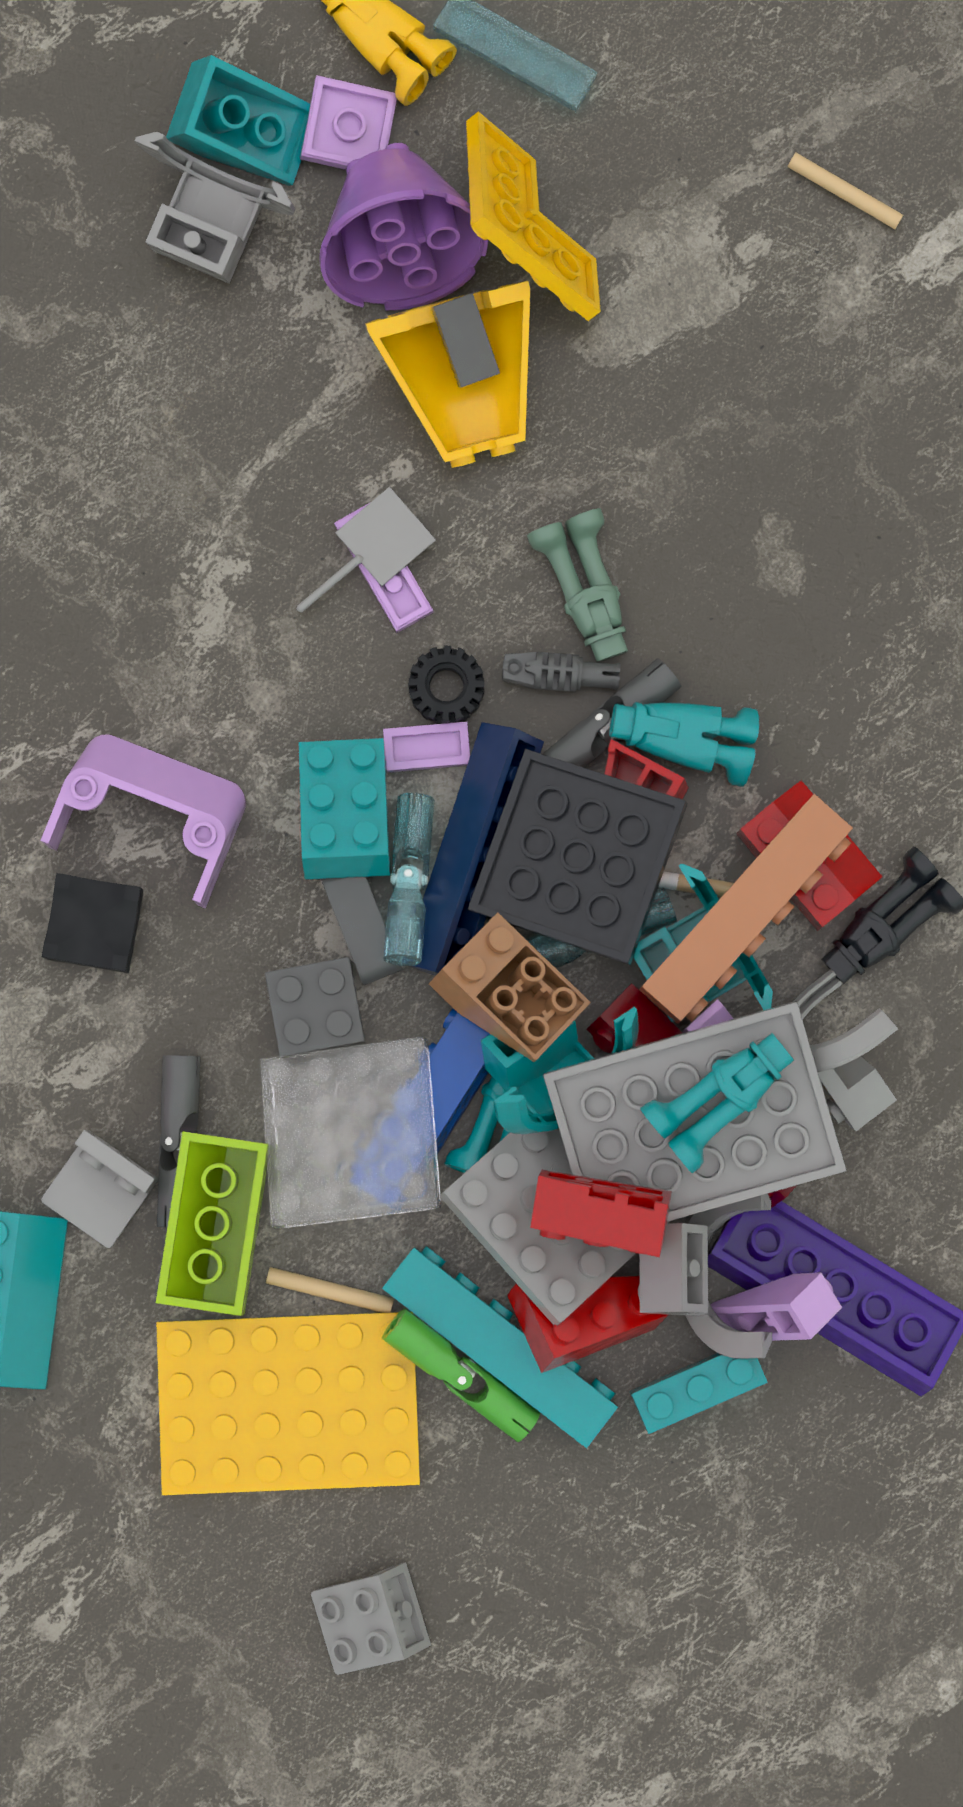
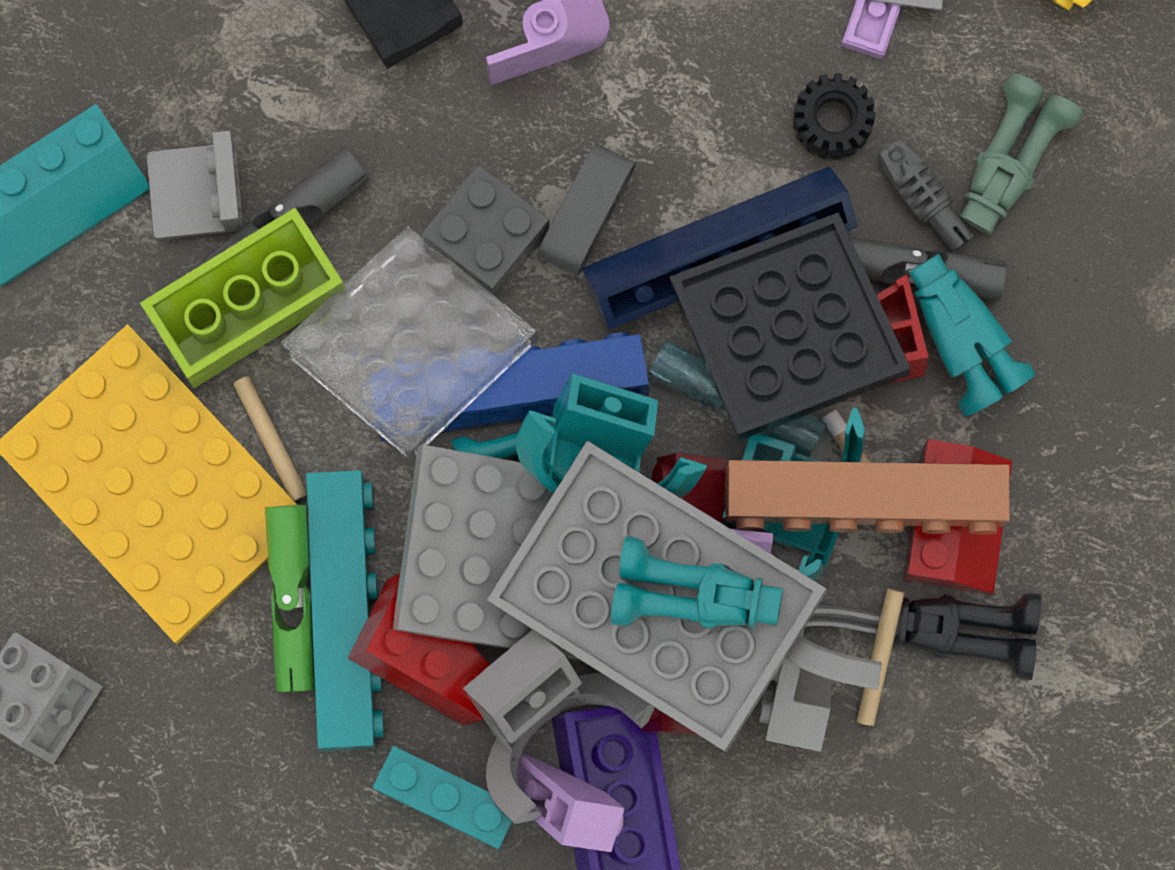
camera: 50 degrees right, 5 degrees down
(344, 808) = (663, 116): teal brick -> none
(406, 908) = (631, 228): clear light blue piece -> none
(426, 747) = (771, 143): lavender tile -> none
(509, 989) = (633, 360): medium nougat slope -> none
(601, 1212) = (516, 580): red wedge -> none
(854, 987) = (881, 653): none -> tan bar

